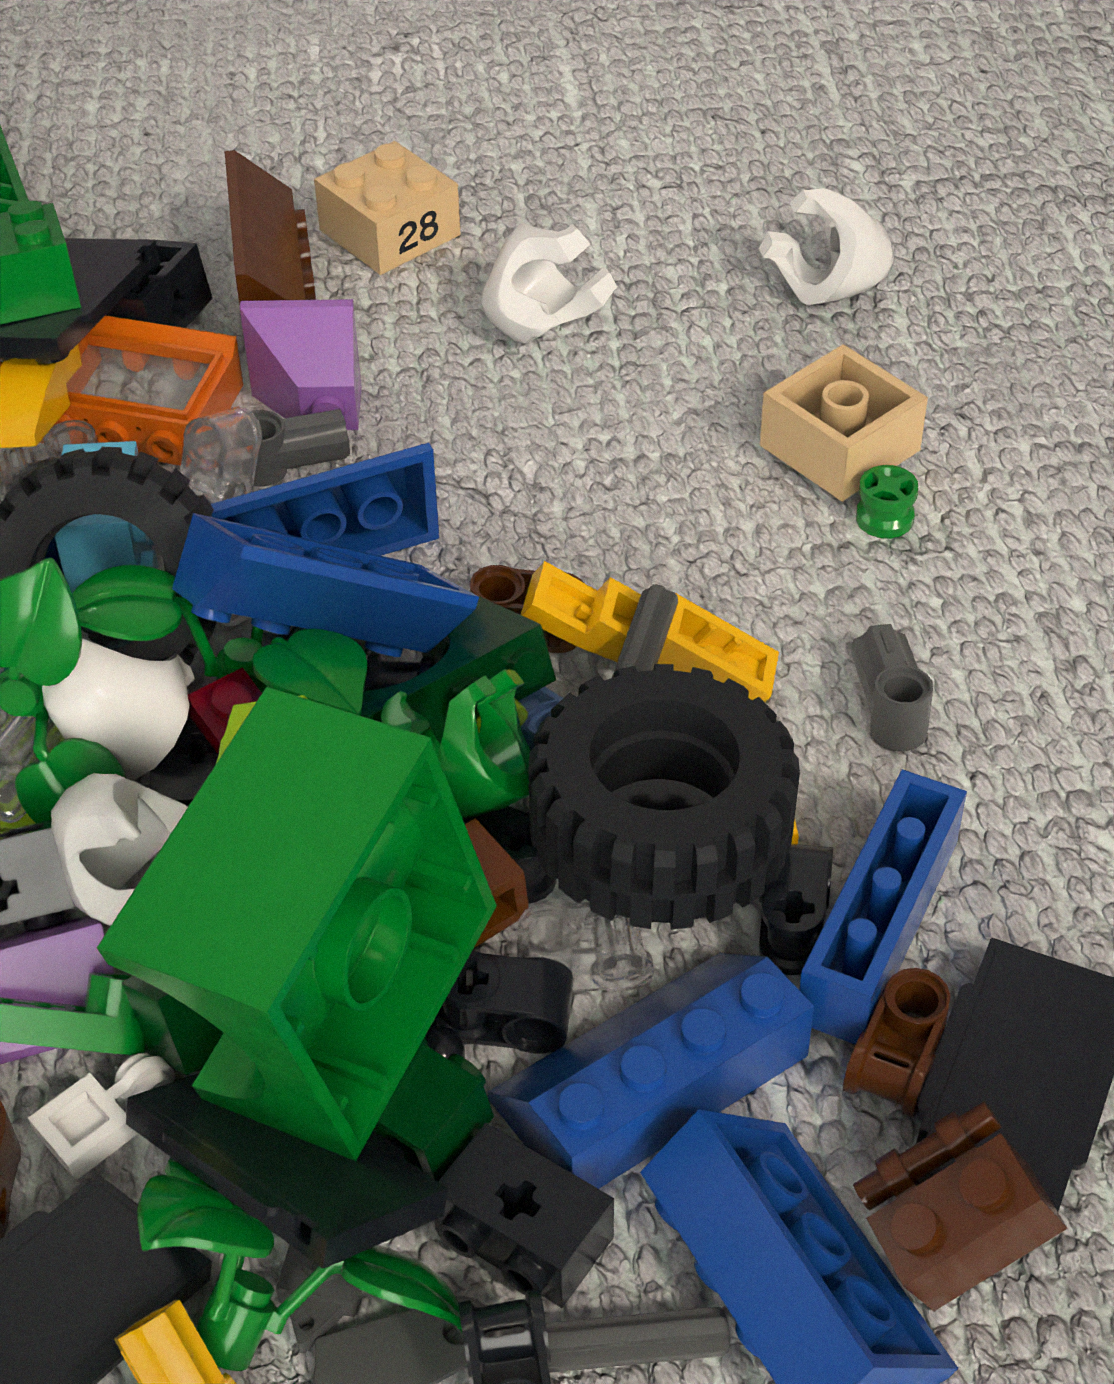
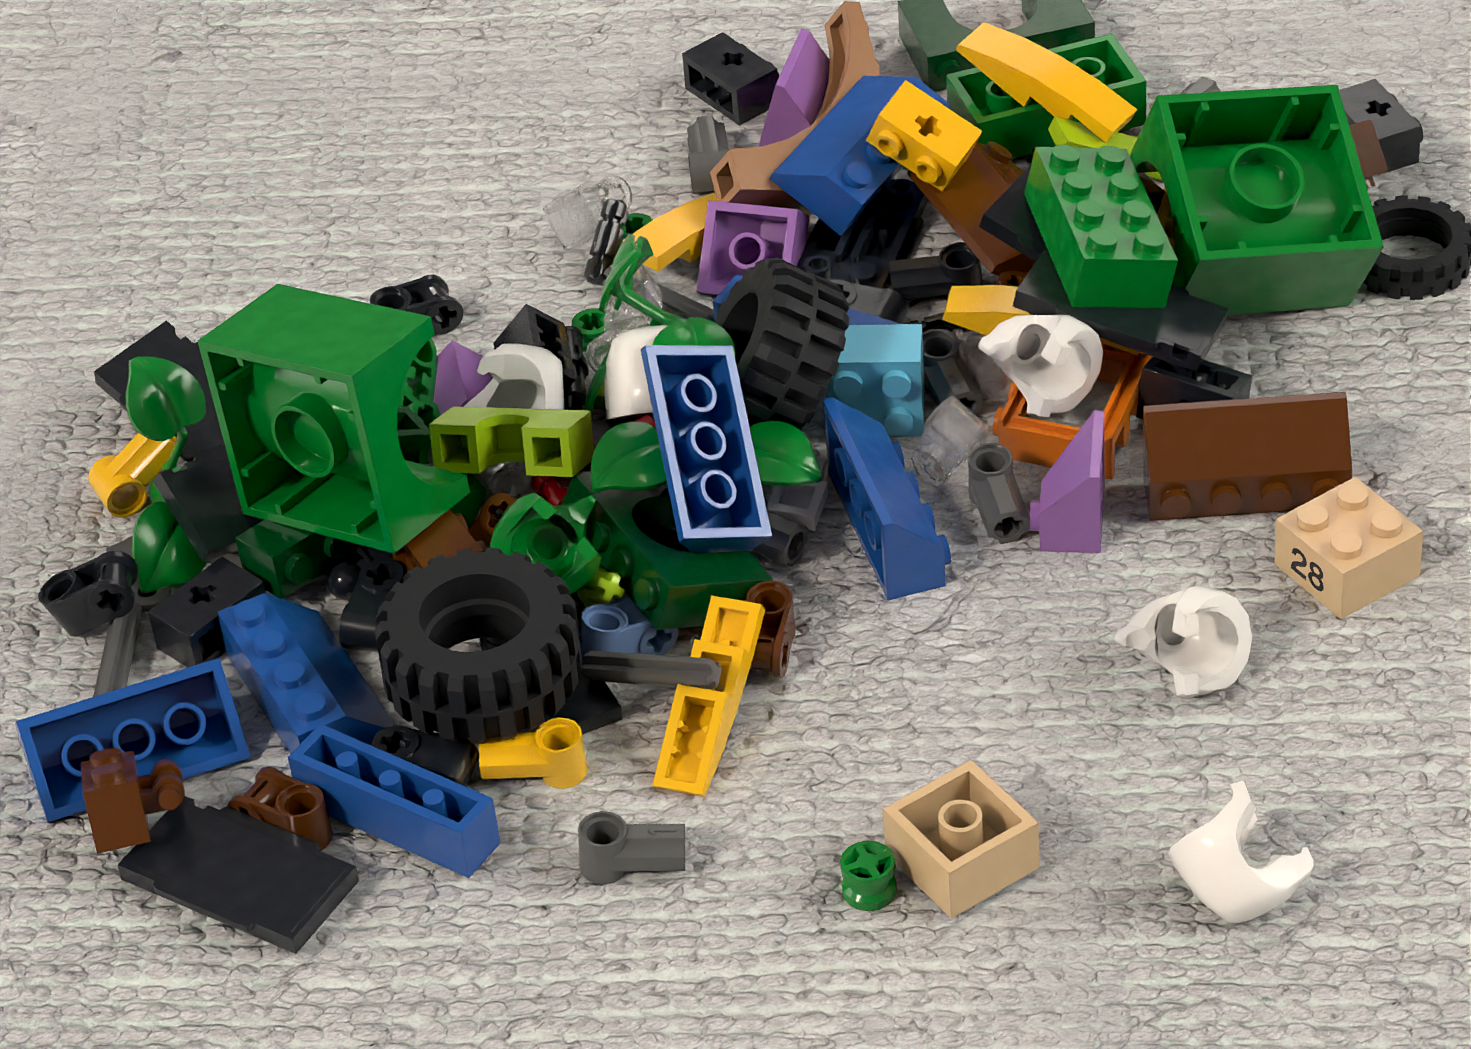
camera: 100 degrees right, 5 degrees down
(121, 362) = (1047, 358): none -> white piece

